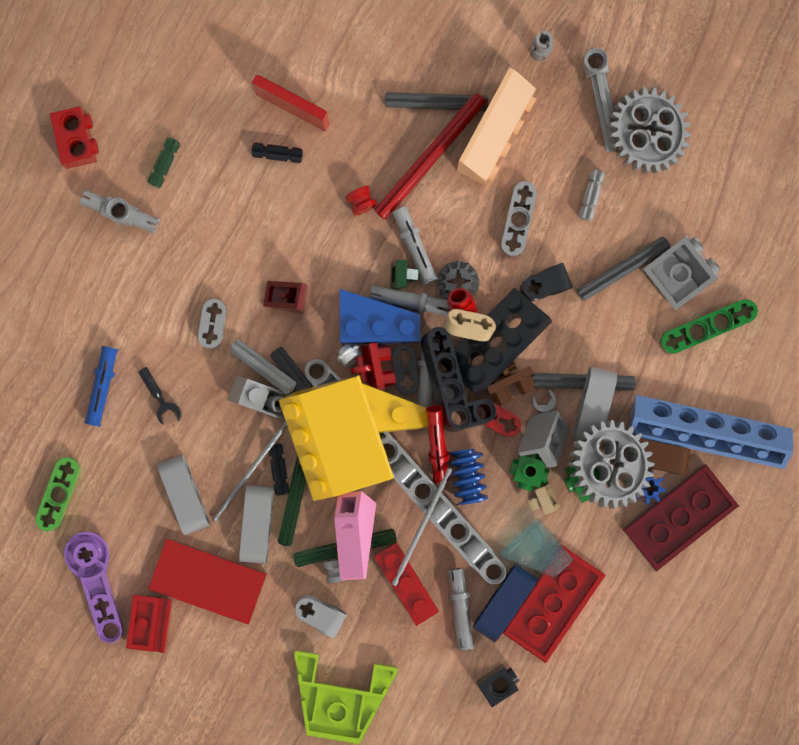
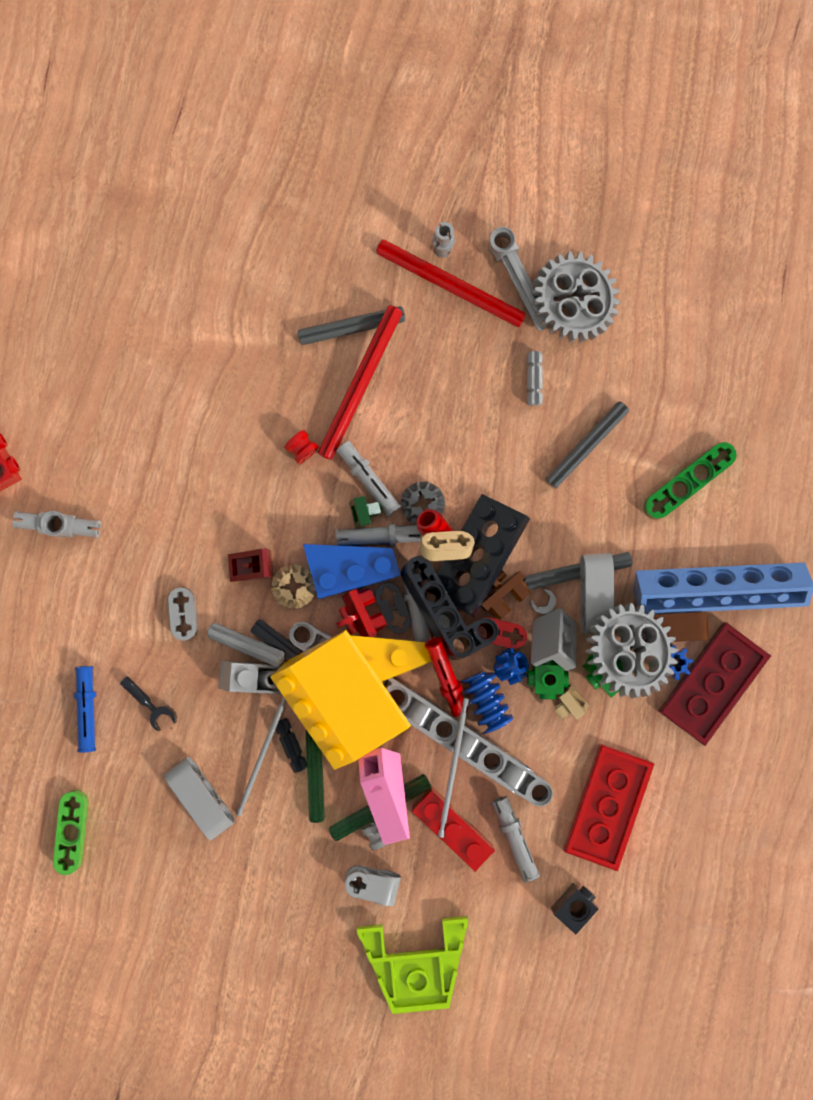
camera: 10 degrees left, 0 degrees up
(94, 579) = (131, 911): medium lavender beam -> none
(149, 623) = (199, 941): red plate -> none
(163, 162) = (89, 462): clear green axle -> none
(207, 581) = (248, 880): red tile -> none
(256, 524) = (282, 808): light grey beam -> none
(277, 152) = (202, 421): black axle -> none
(290, 102) = (201, 365): red tile -> none
(310, 333) = (285, 597): none -> tan gear
(348, 355) = (330, 608): white plate -> none
(496, 128) = (419, 335): light nougat slope -> none
(499, 451) = (511, 666): none -> blue gear
(504, 603) = (559, 821): dark blue beam -> none
(516, 198) = (459, 403): light grey beam -> none
(538, 551) = (578, 758): clear light blue wing -> none
(542, 90) = (450, 283): none -> red axle
(550, 282) = (516, 480): black piece -> none
(683, 271) = (649, 431): light grey plate -> none

